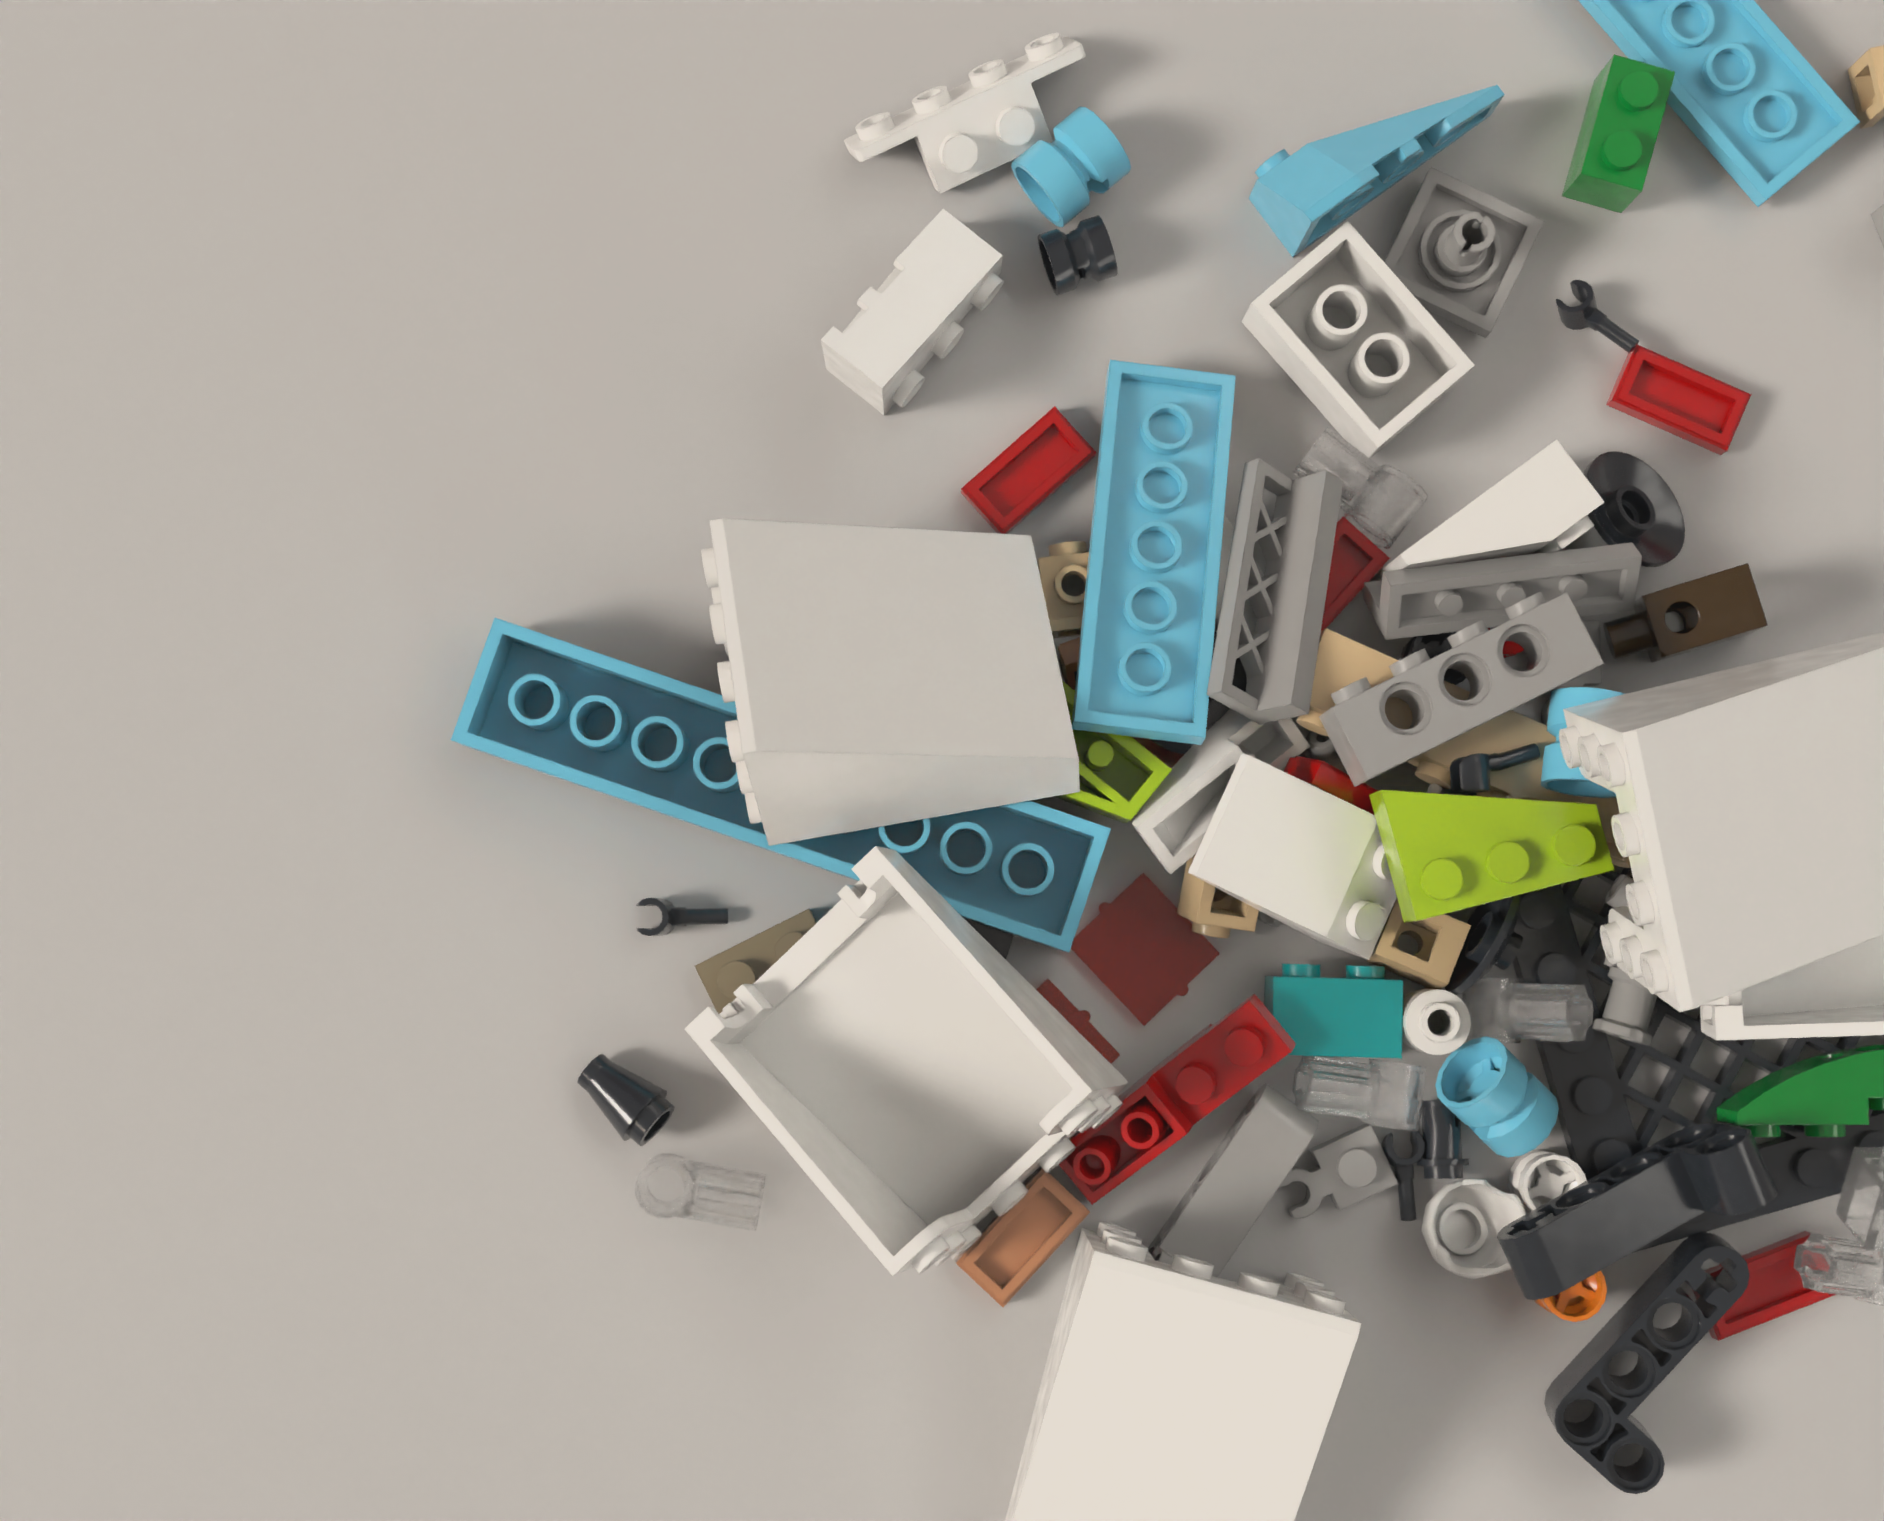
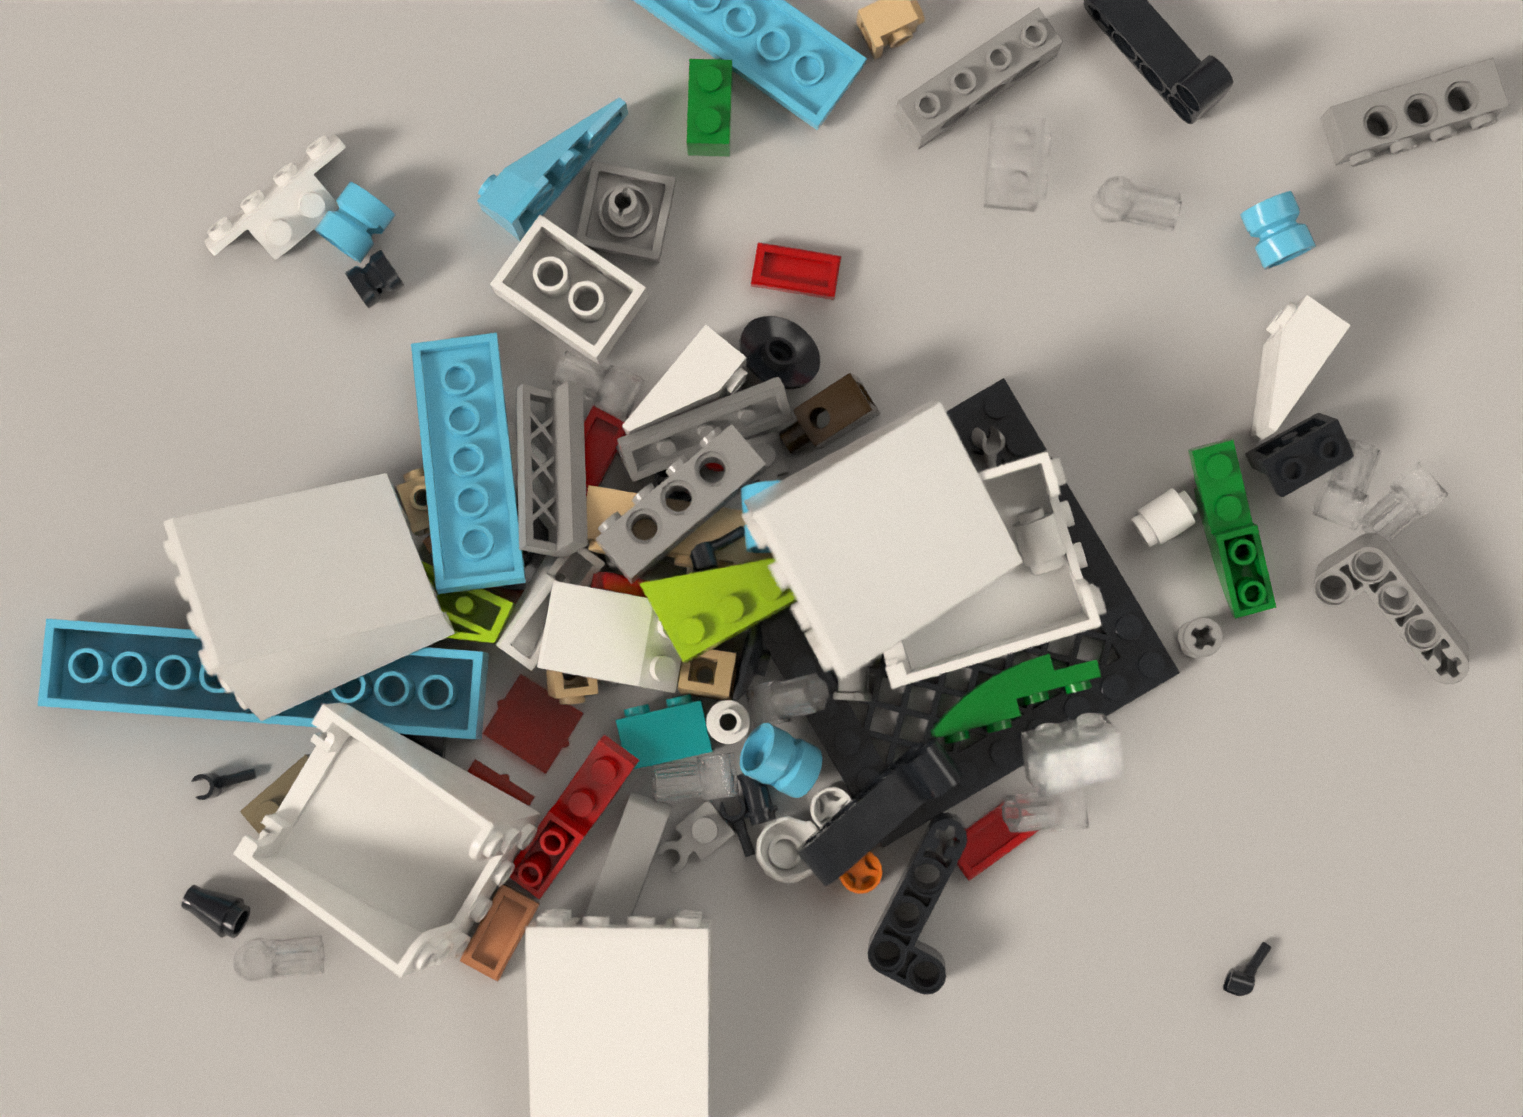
camera: 10 degrees left, 0 degrees up
(914, 313) = (275, 345): white wedge -> none
(1028, 472) = (379, 430): red tile -> none
(1589, 316) = (722, 231): black hand -> none

